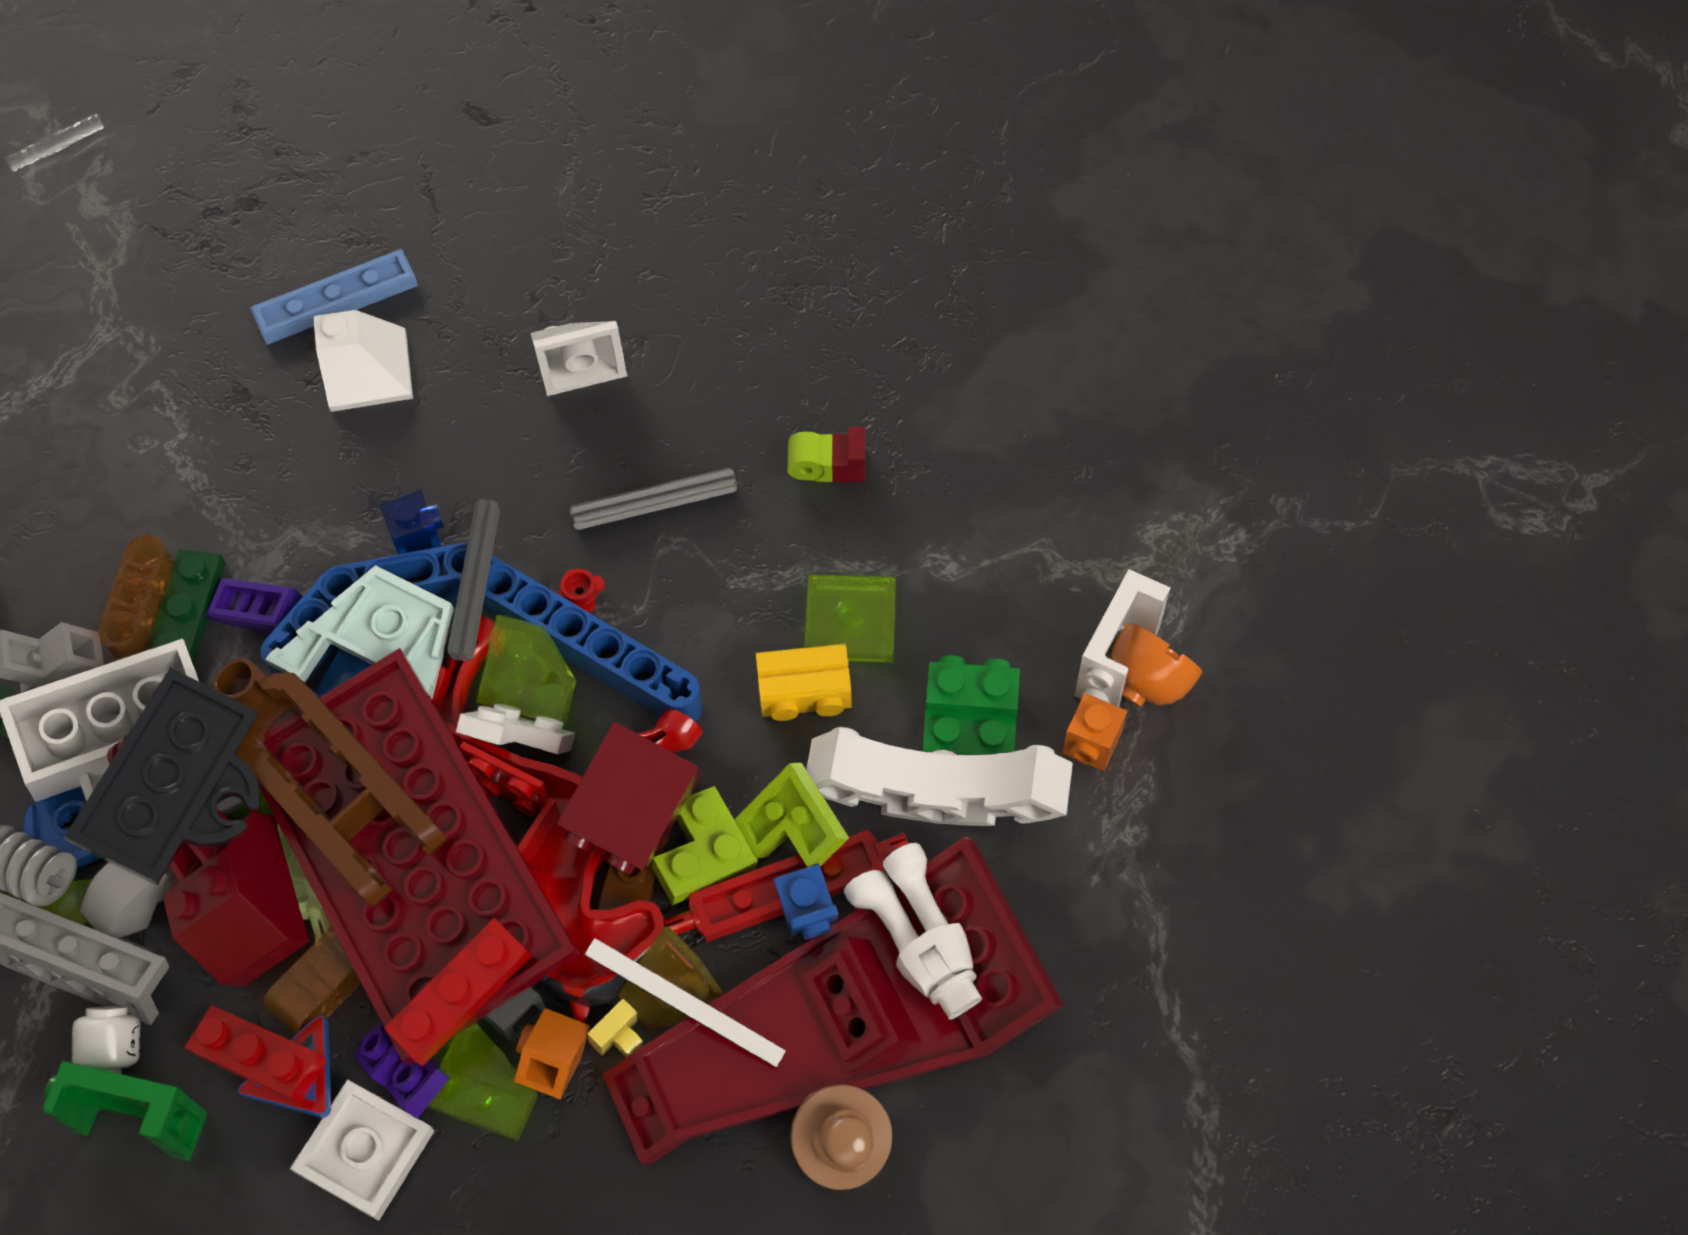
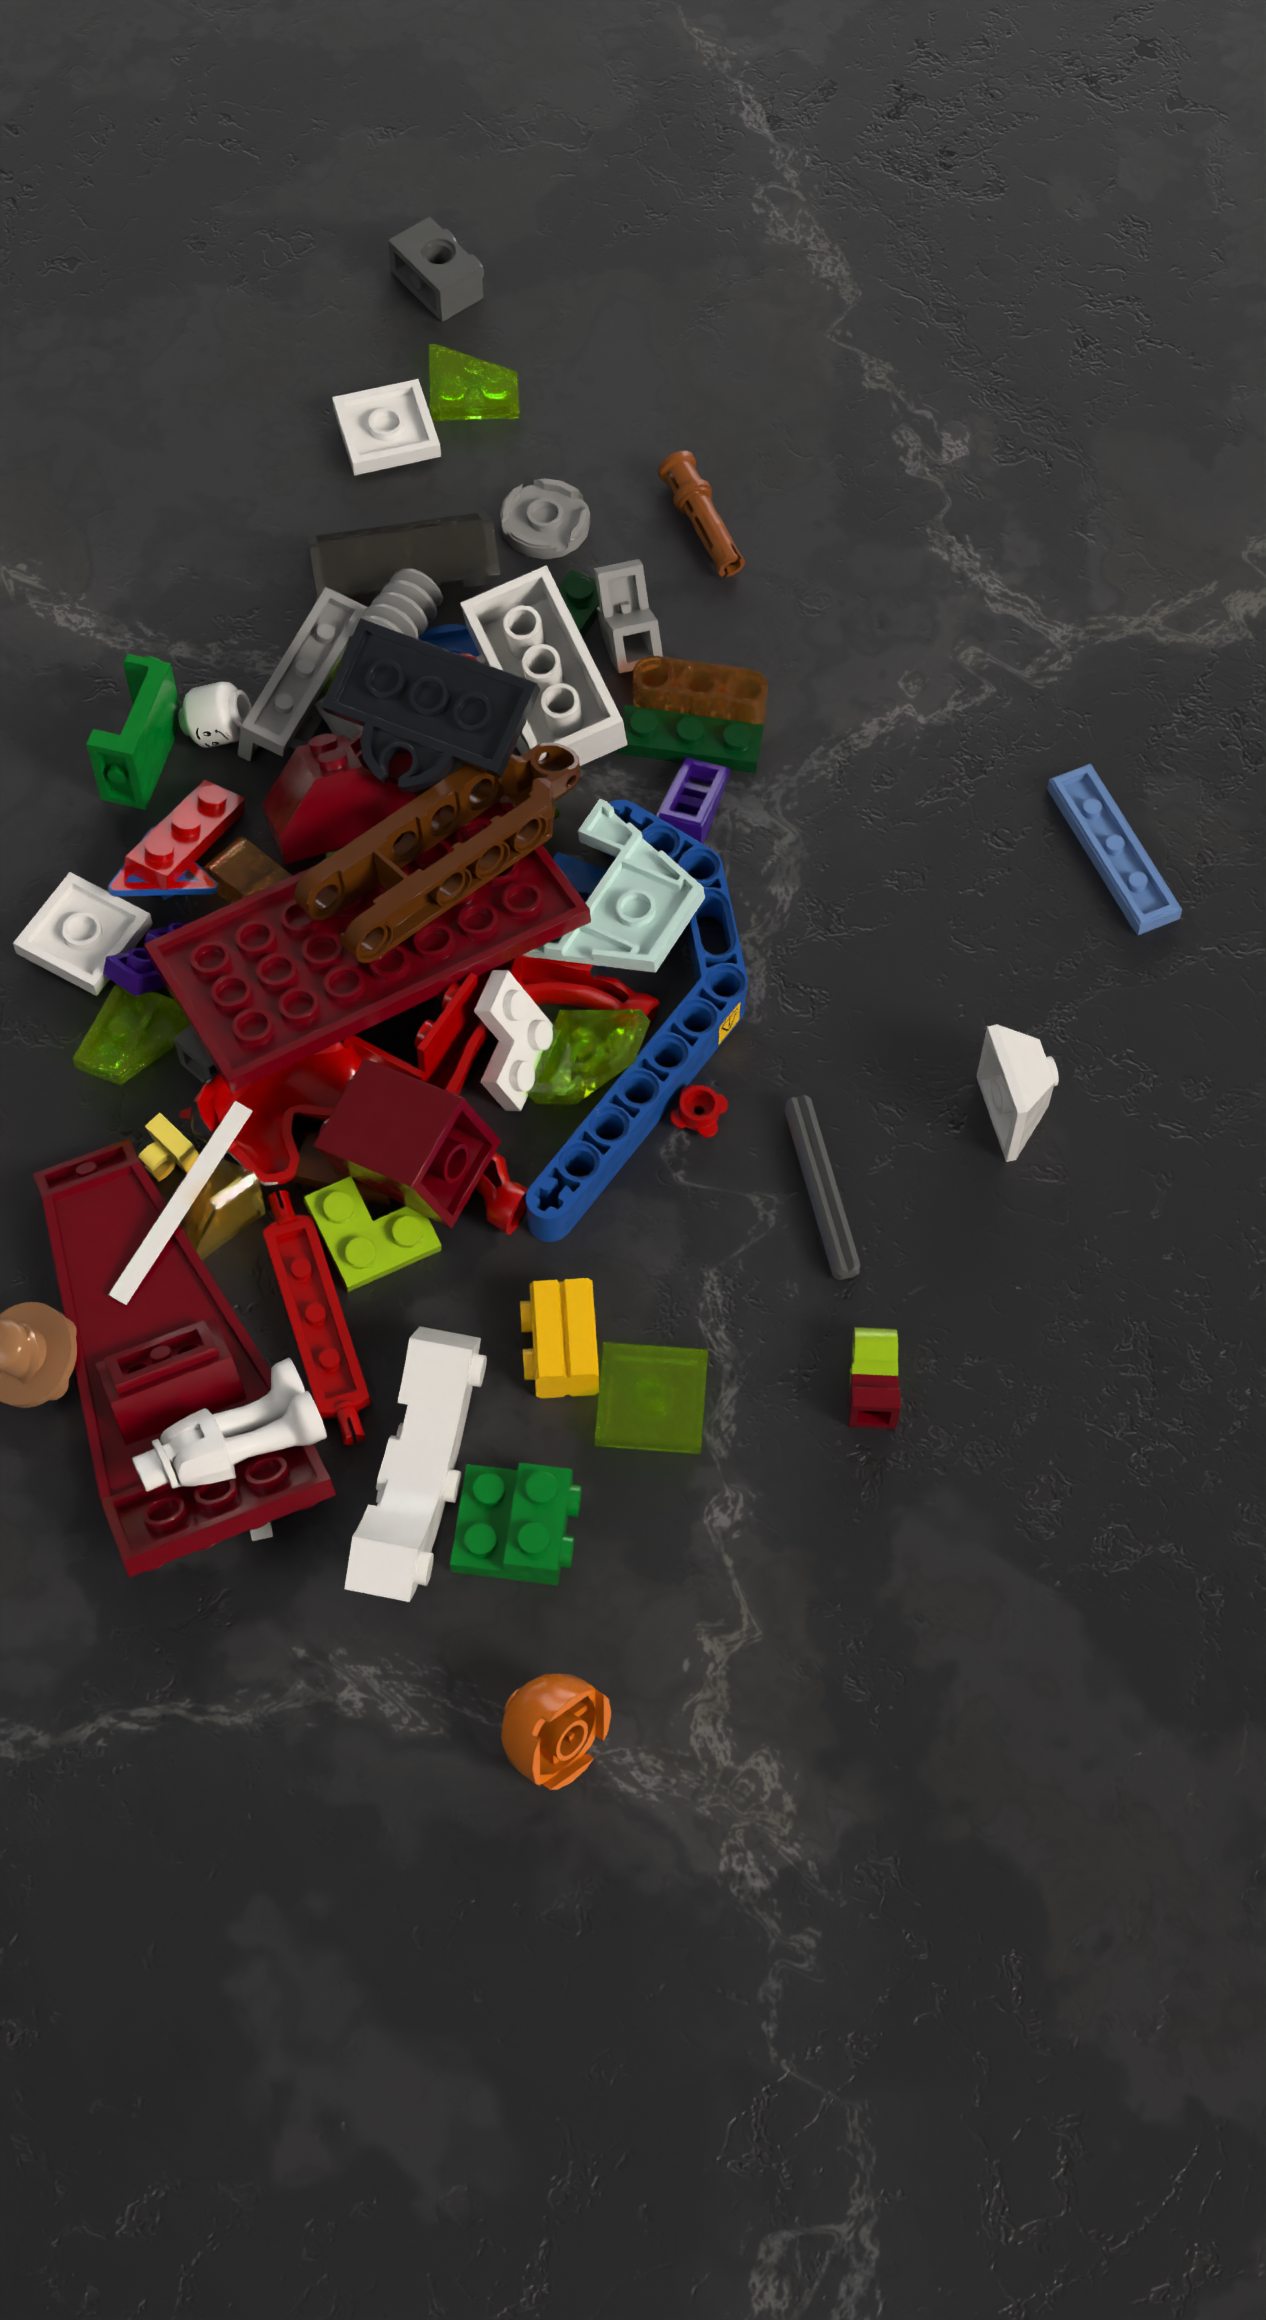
camera: 90 degrees right, 0 degrees up
(362, 360) = (1014, 878): white slope -> none
(412, 522) = (780, 936): clear blue brick -> none
(457, 992) = (199, 982): red plate -> none
(474, 580) = (693, 988): dark grey axle -> none
(550, 1053) = (150, 1084): orange brick -> none
(796, 810) = (389, 1306): lime plate -> none
(806, 902) = (282, 1325): blue bracket -> none
(1094, 732) = (470, 1652): orange brick -> none
(1137, 602) = (552, 1650): white panel -> none

